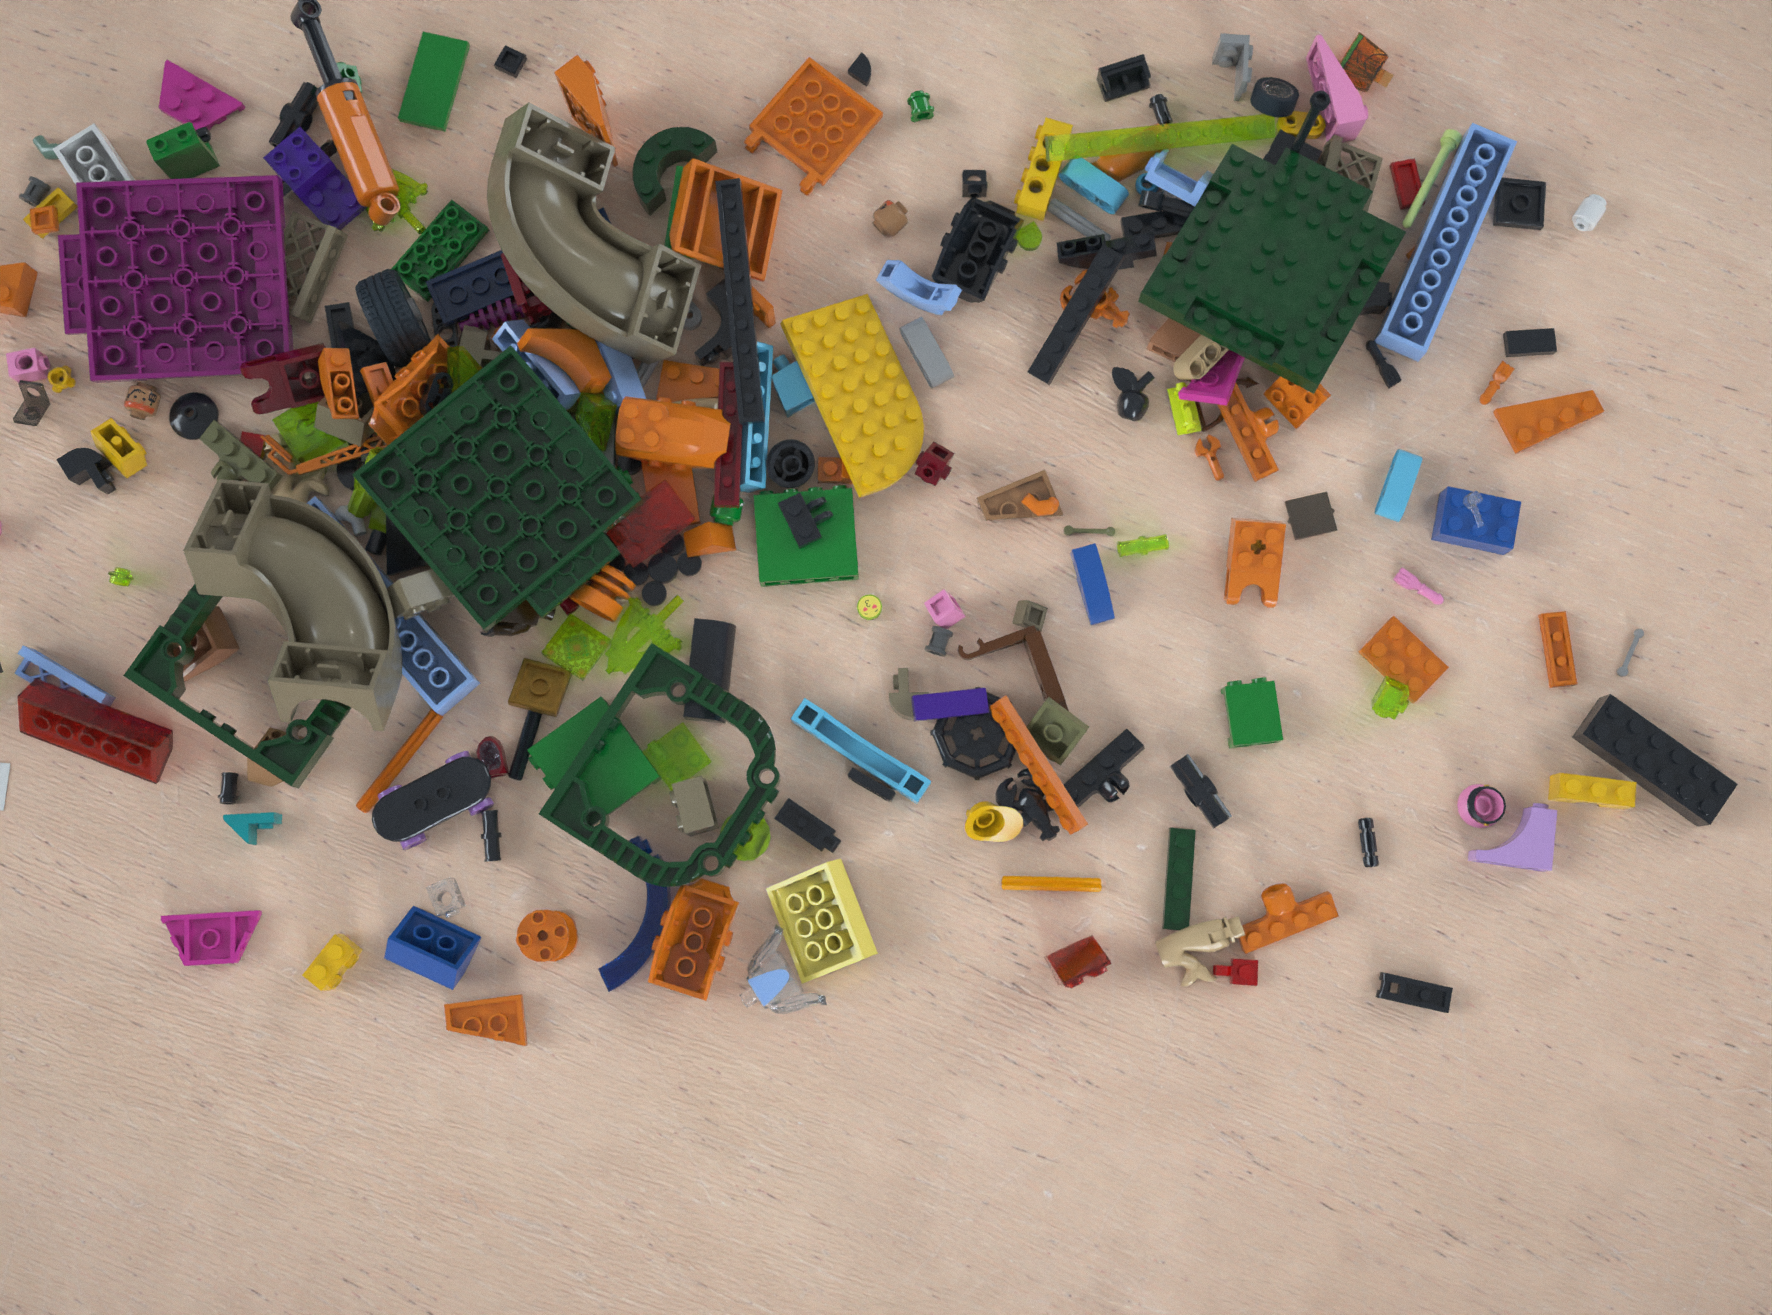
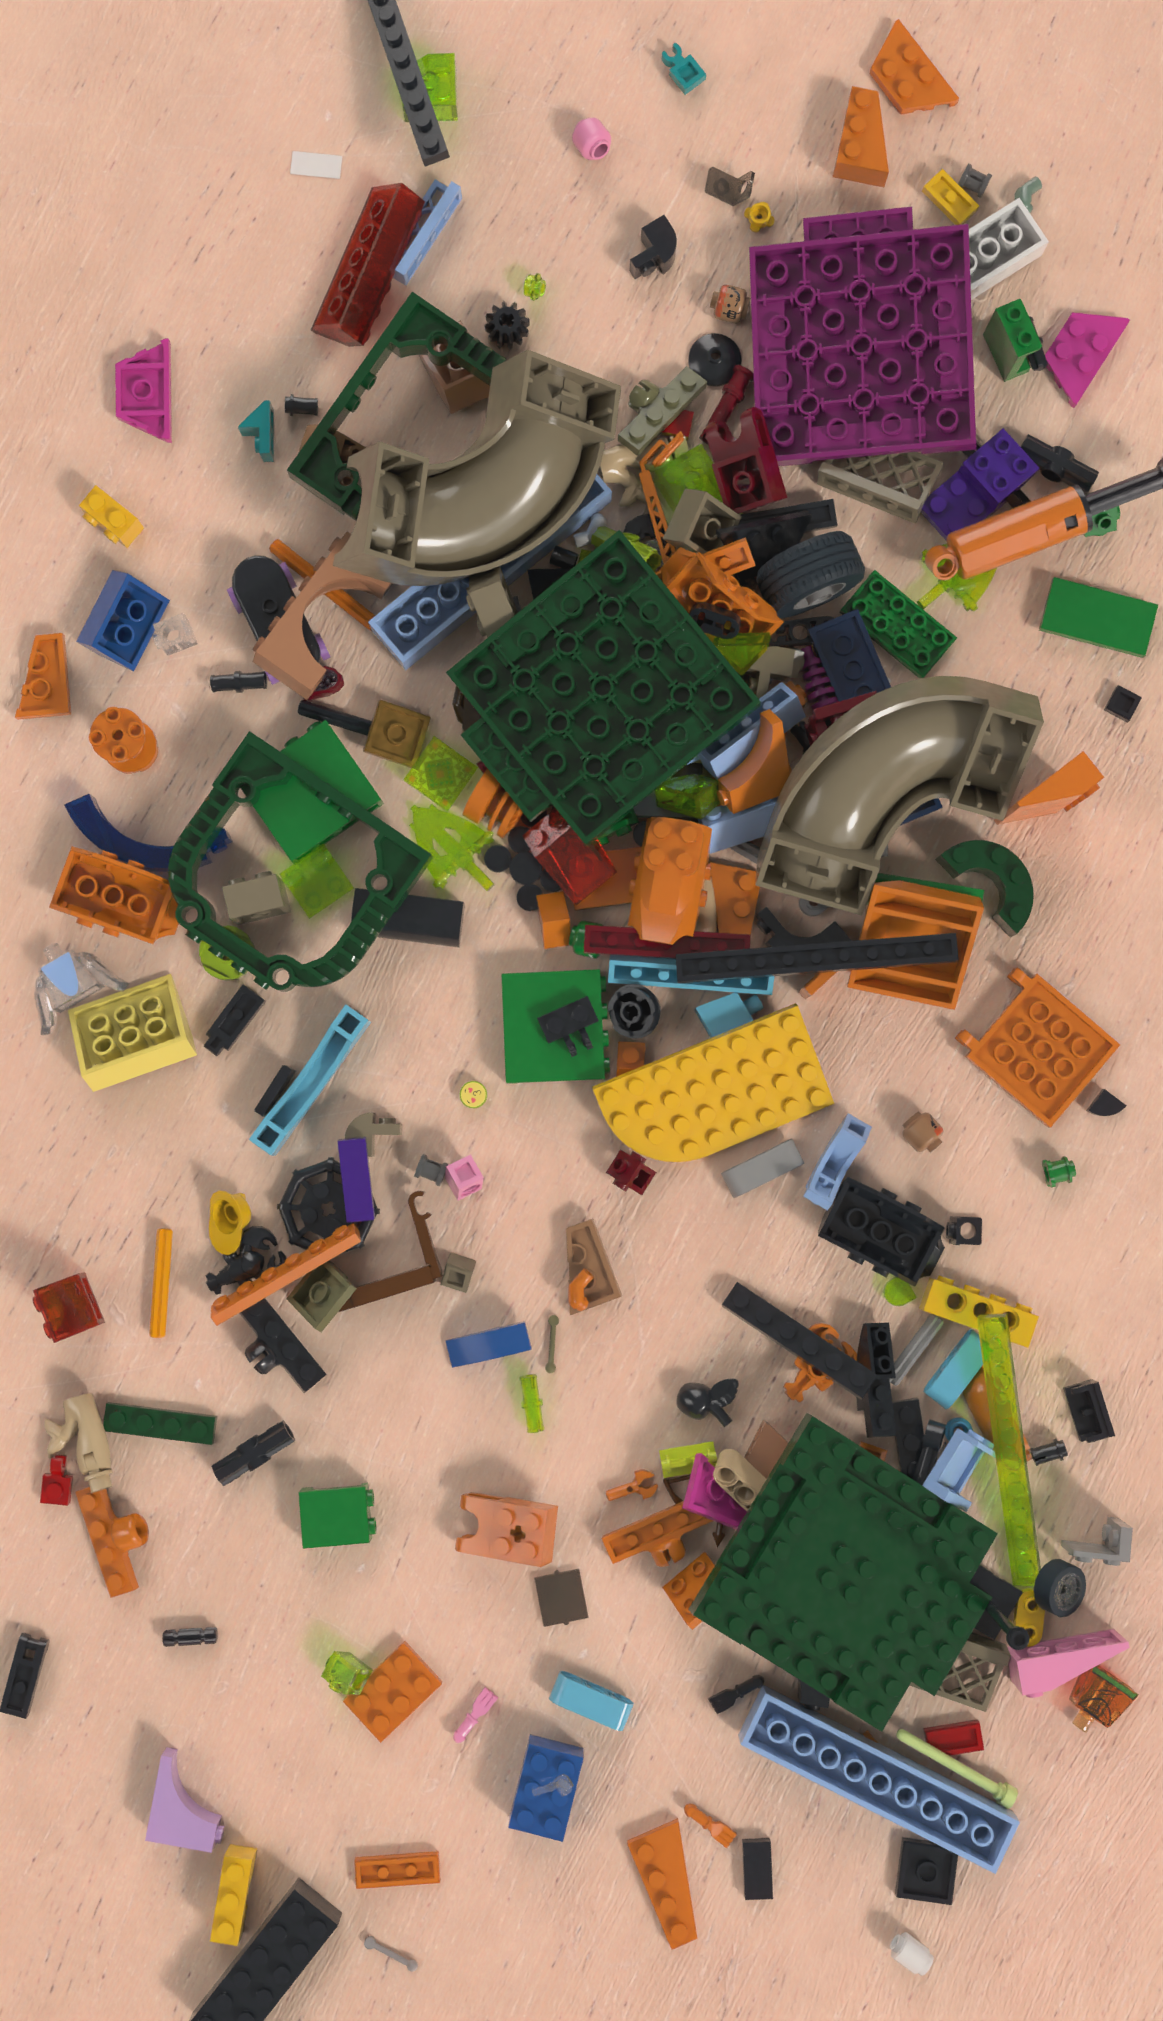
camera: 90 degrees right, 5 degrees up
(18, 363) = (776, 170): bright pink brick -> none
(44, 220) = (940, 192): orange tile -> none
(119, 447) = (676, 280): yellow brick -> none
(162, 593) = (507, 316): none -> black gear
(227, 398) = (732, 394): none -> dark red pin
(338, 382) = (729, 514): orange slope -> none
(462, 783) = (284, 649): none -> nougat arch
(1481, 805) = (225, 1767): bright pink piece -> none

